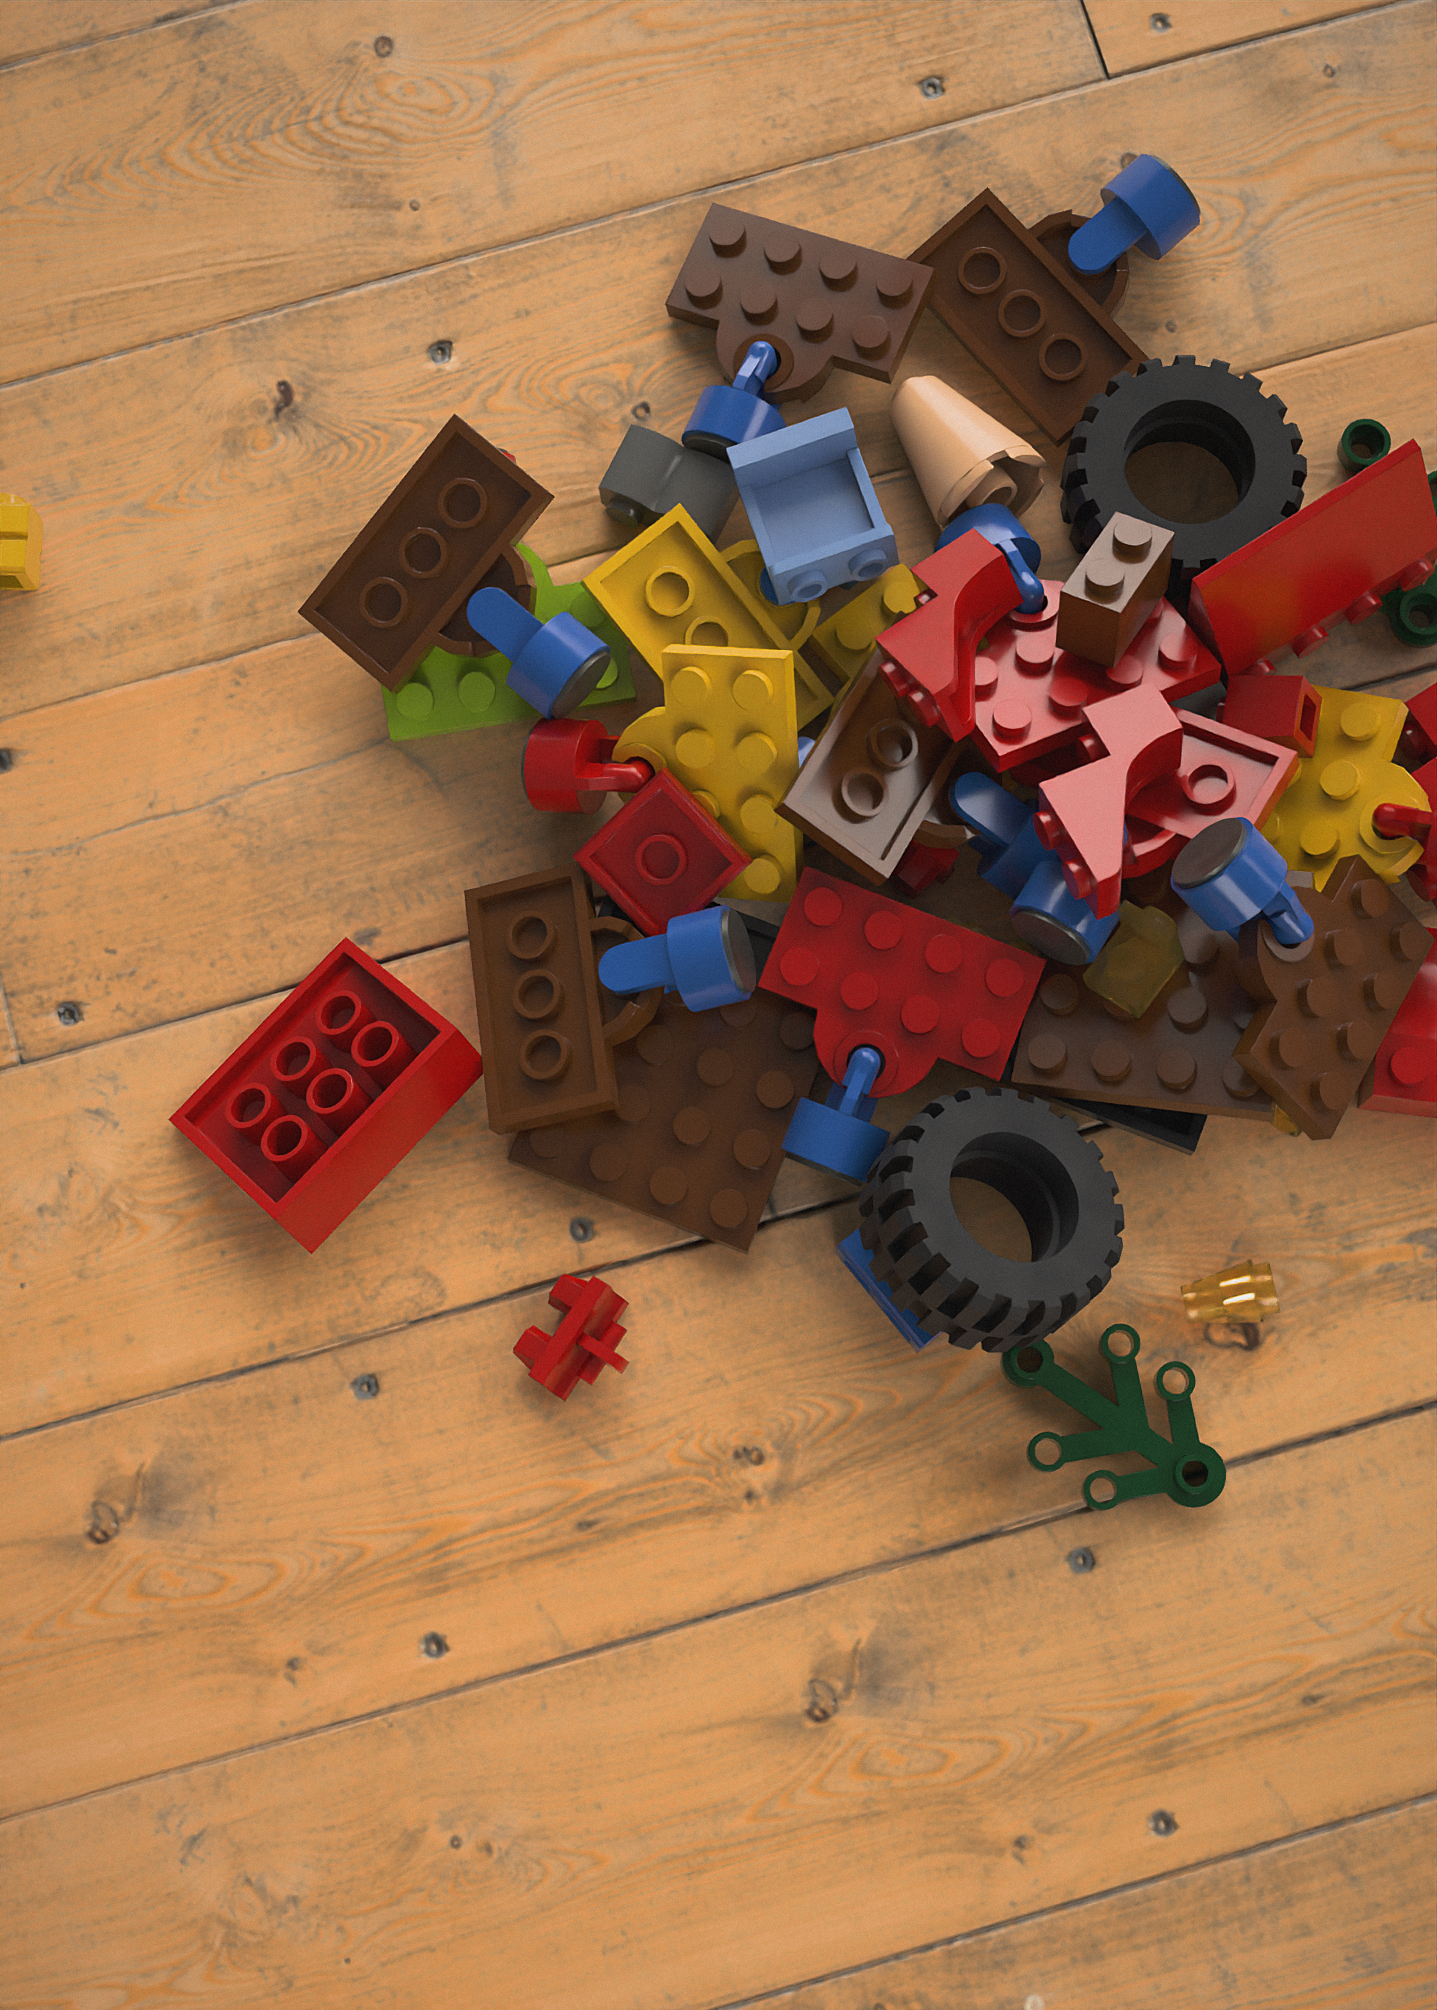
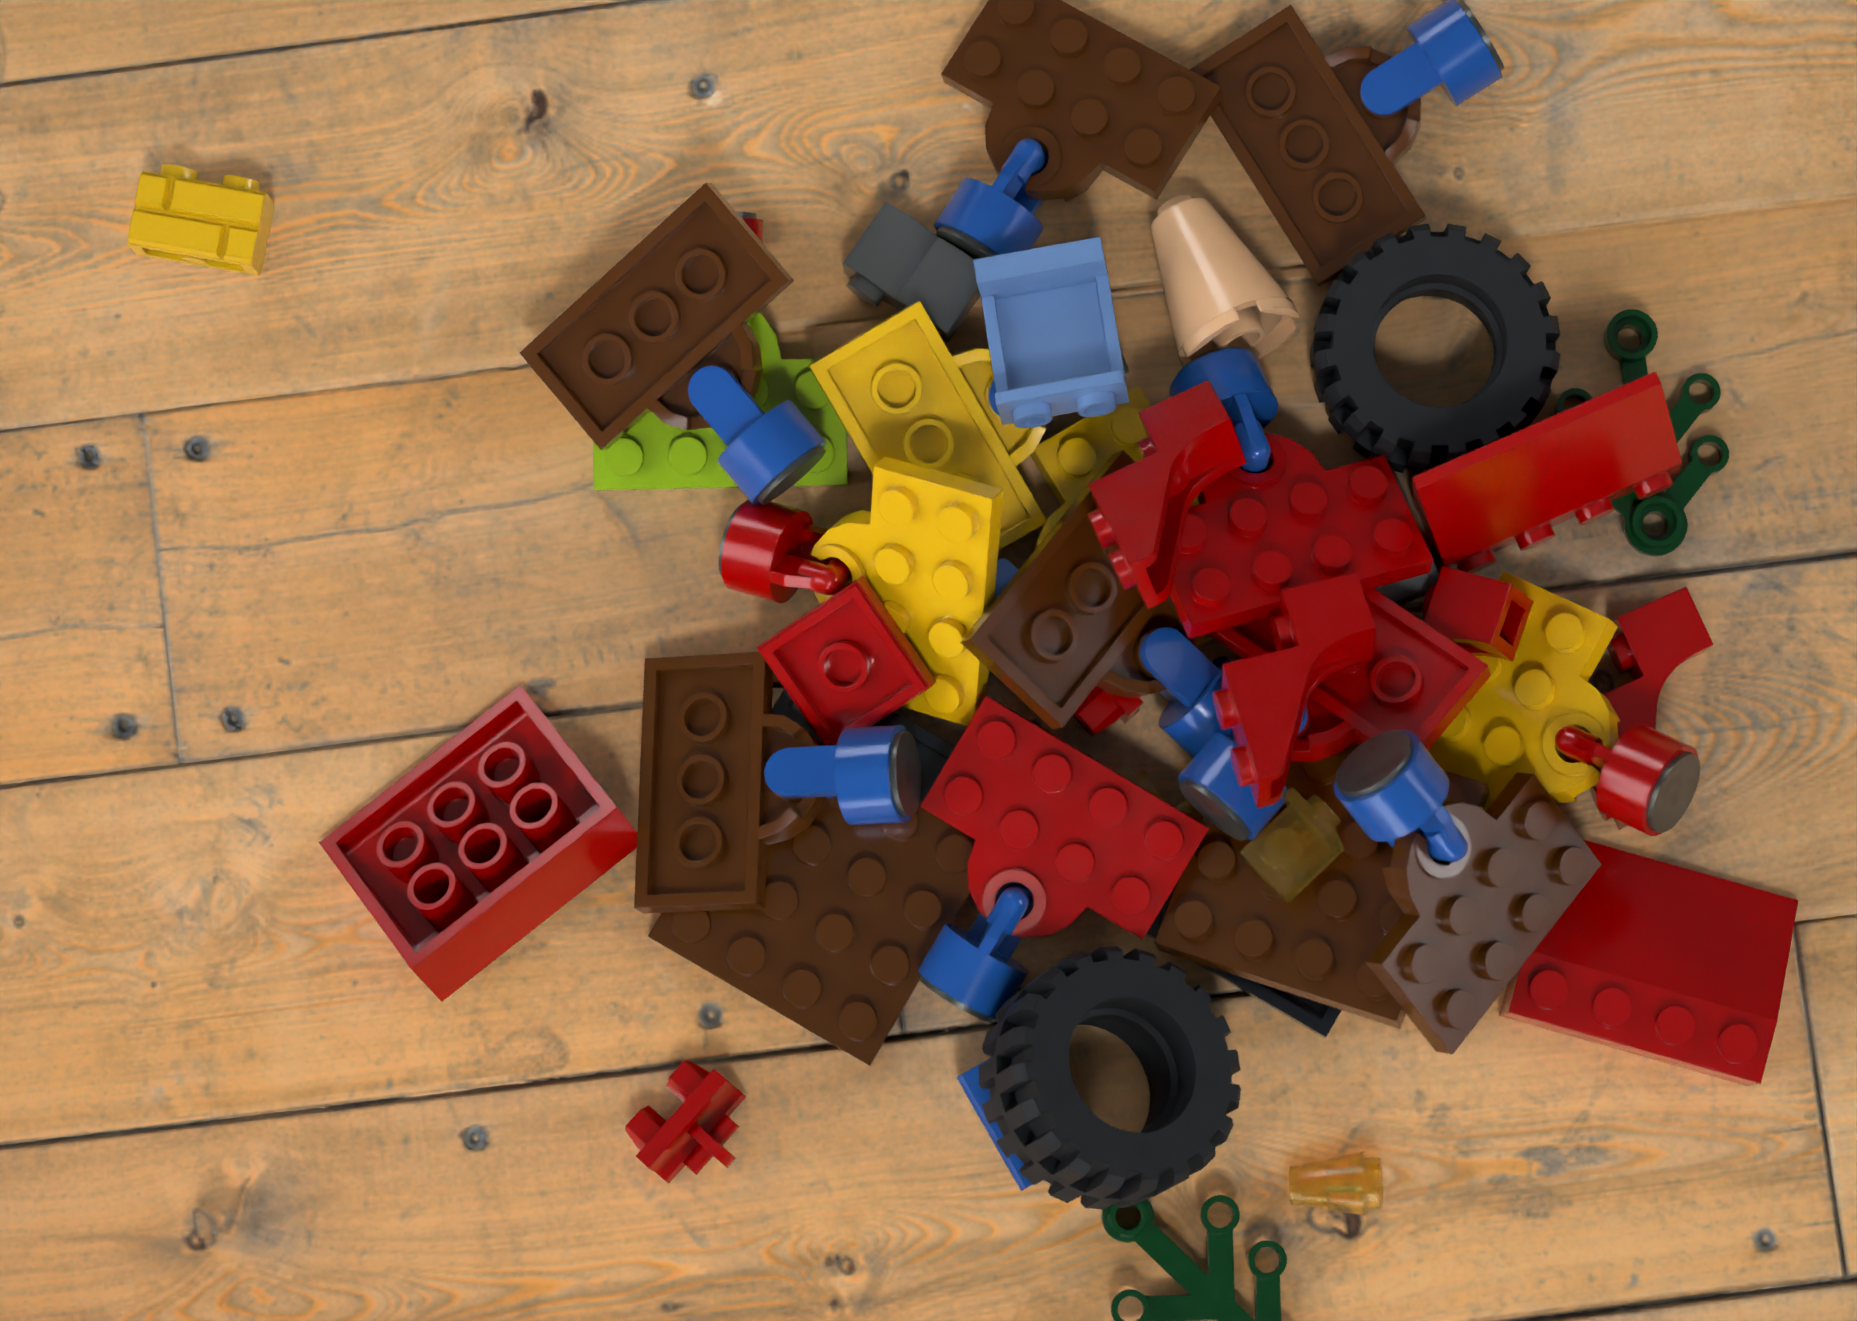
camera: 10 degrees right, 5 degrees up
(1114, 589) = (1337, 468): reddish brown brick -> none

